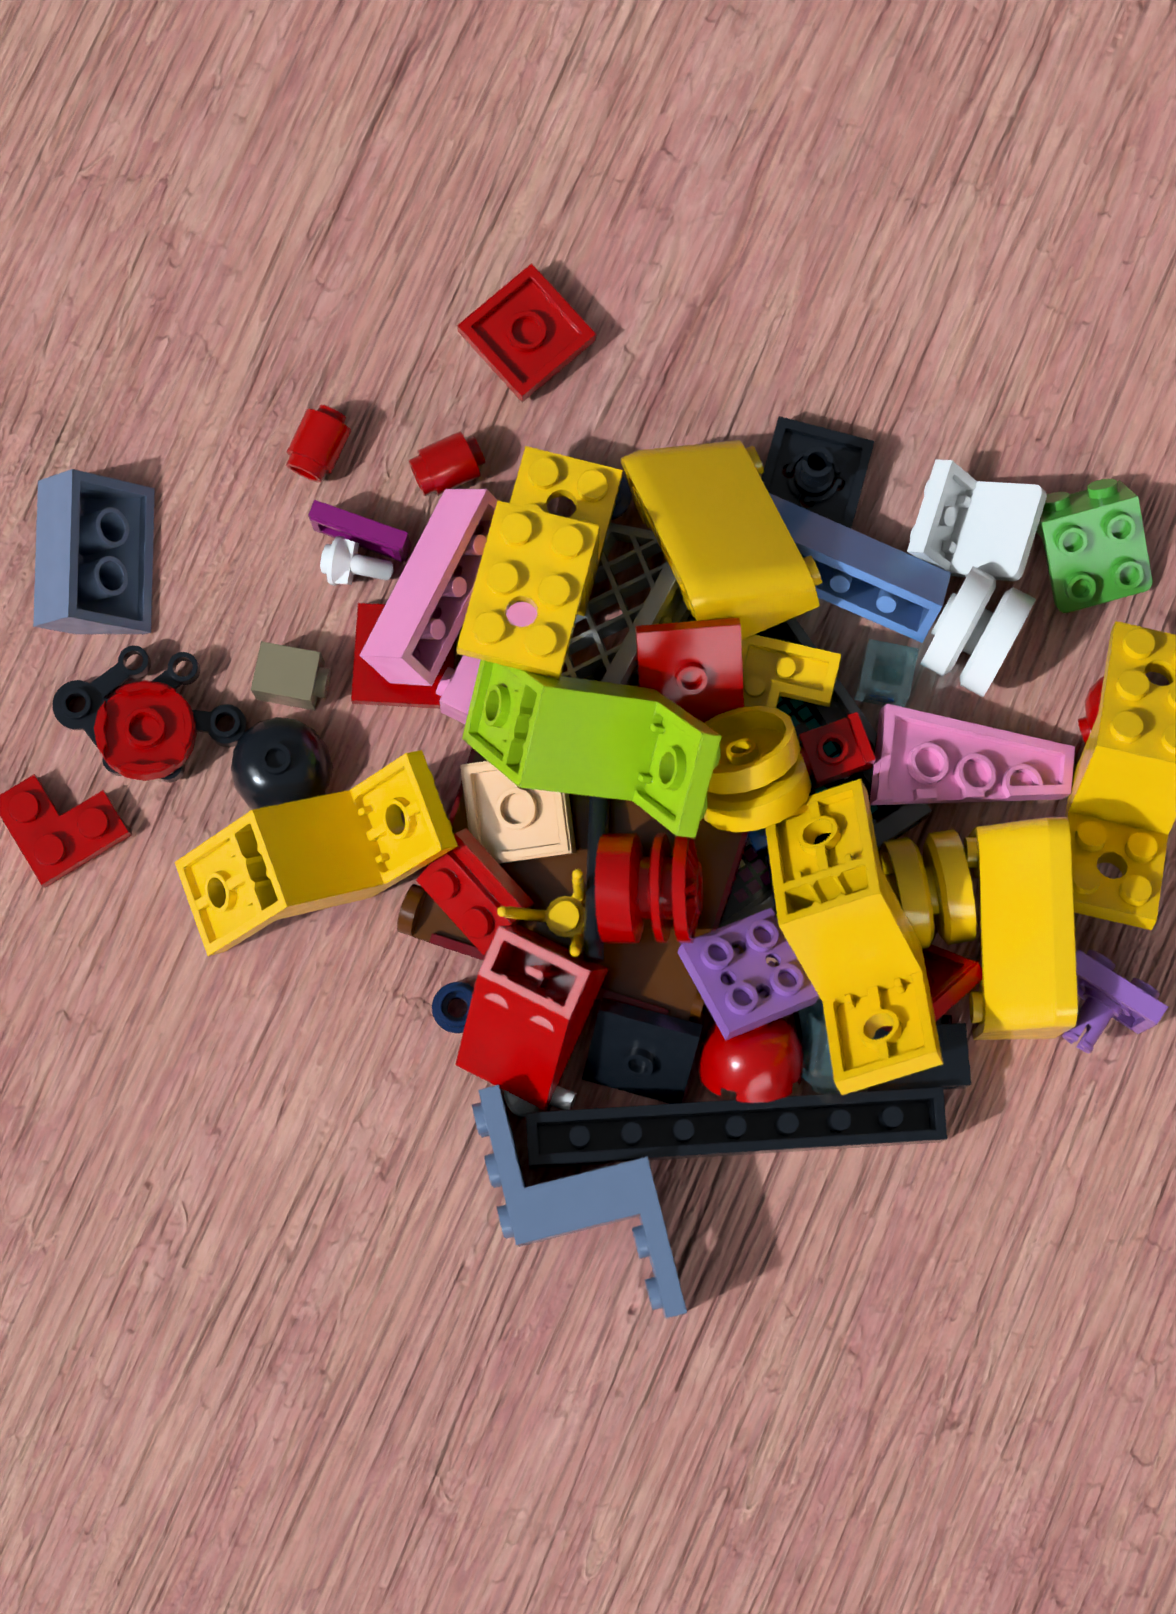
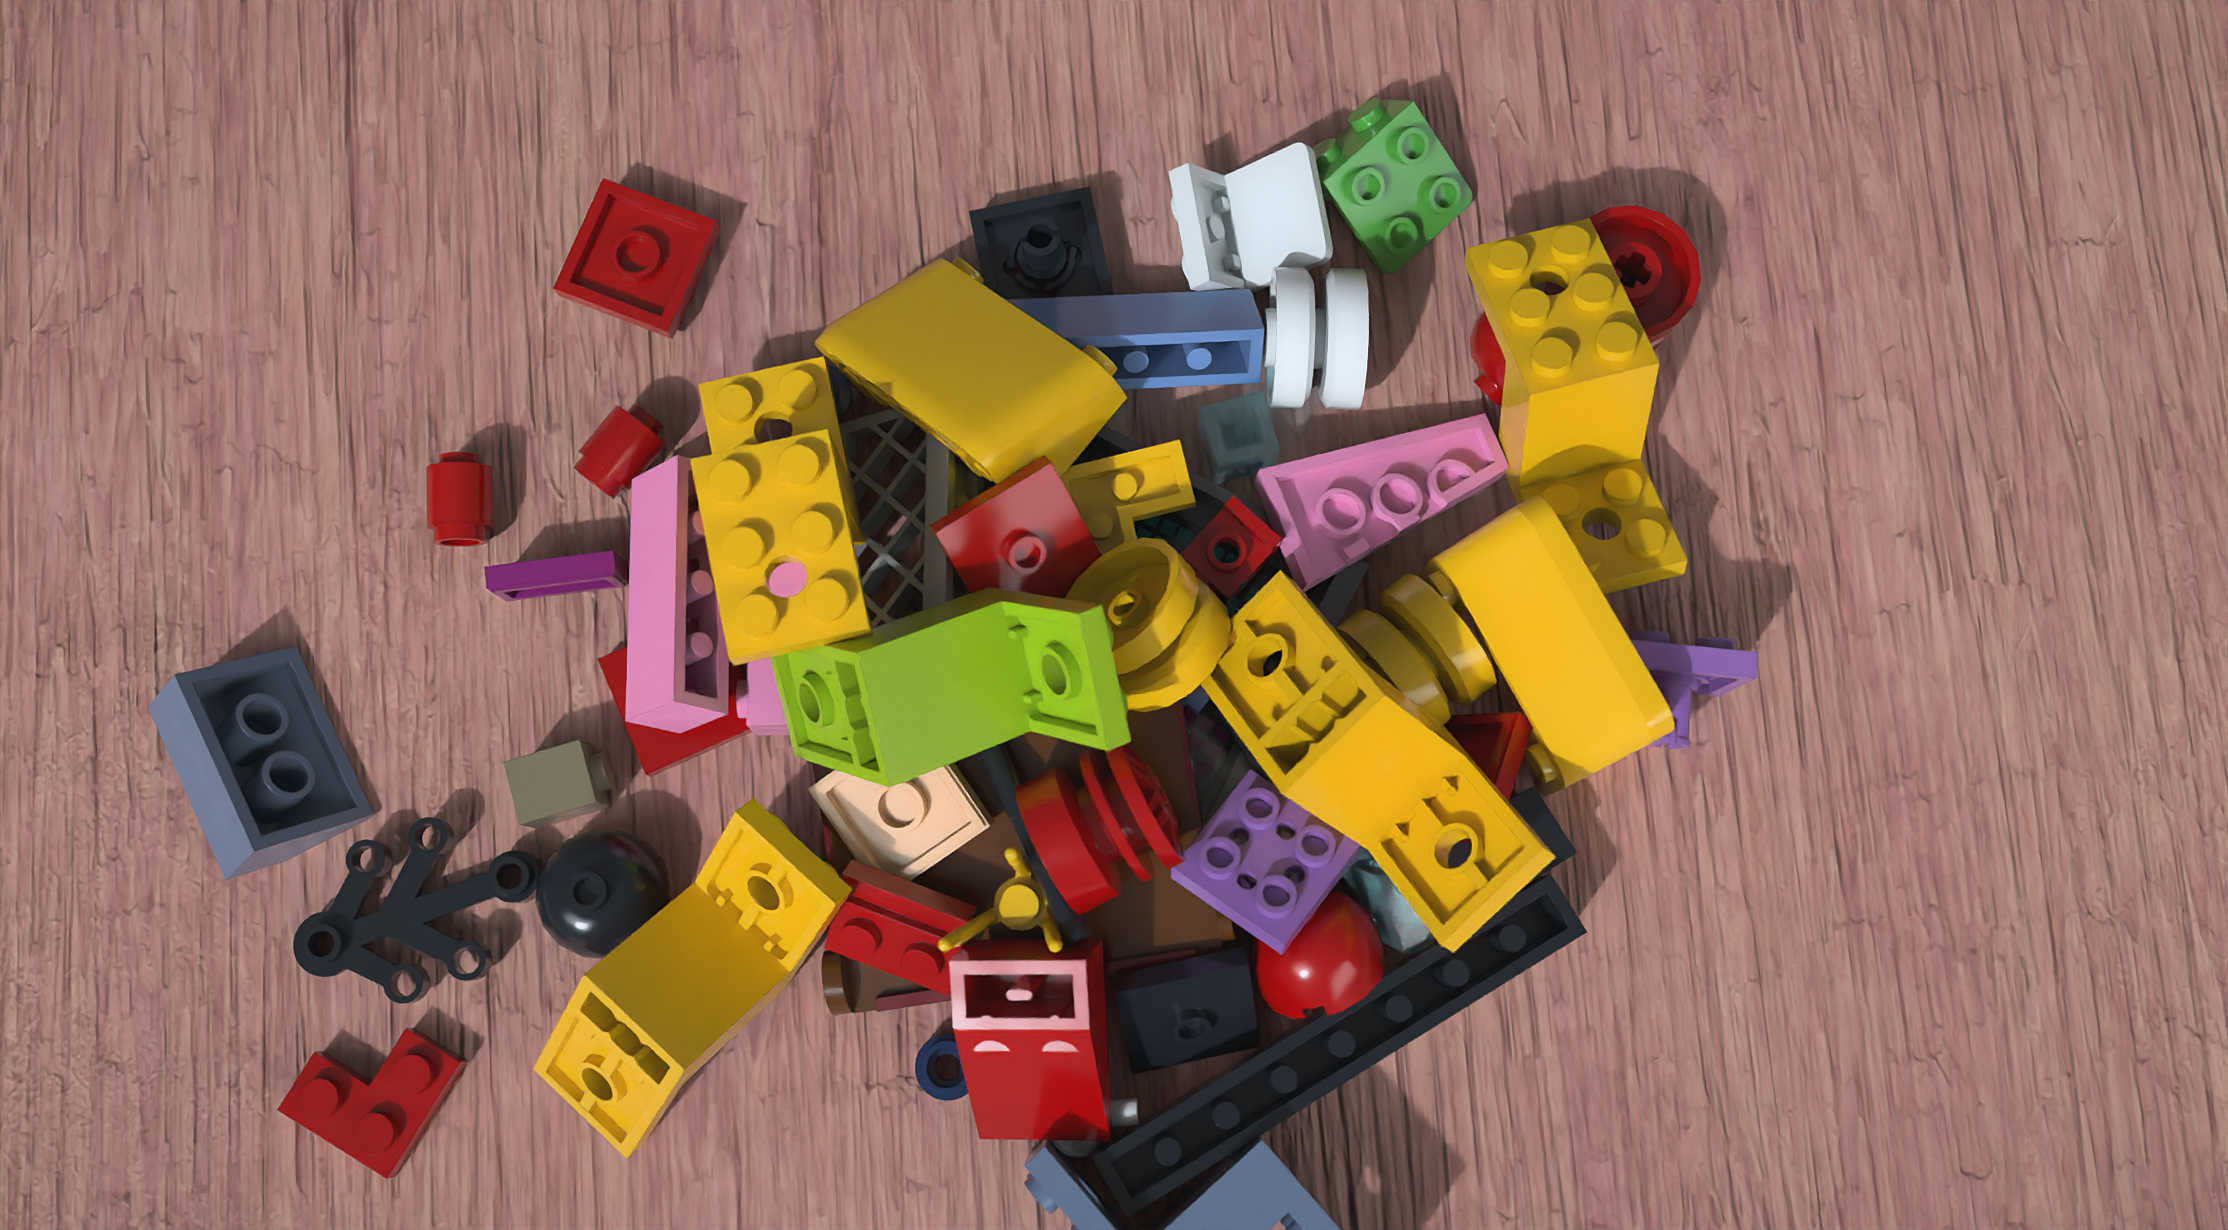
camera: 30 degrees left, 0 degrees up
(145, 730) = (419, 935): red tile -> none
(342, 561) = (555, 621): white plate -> none

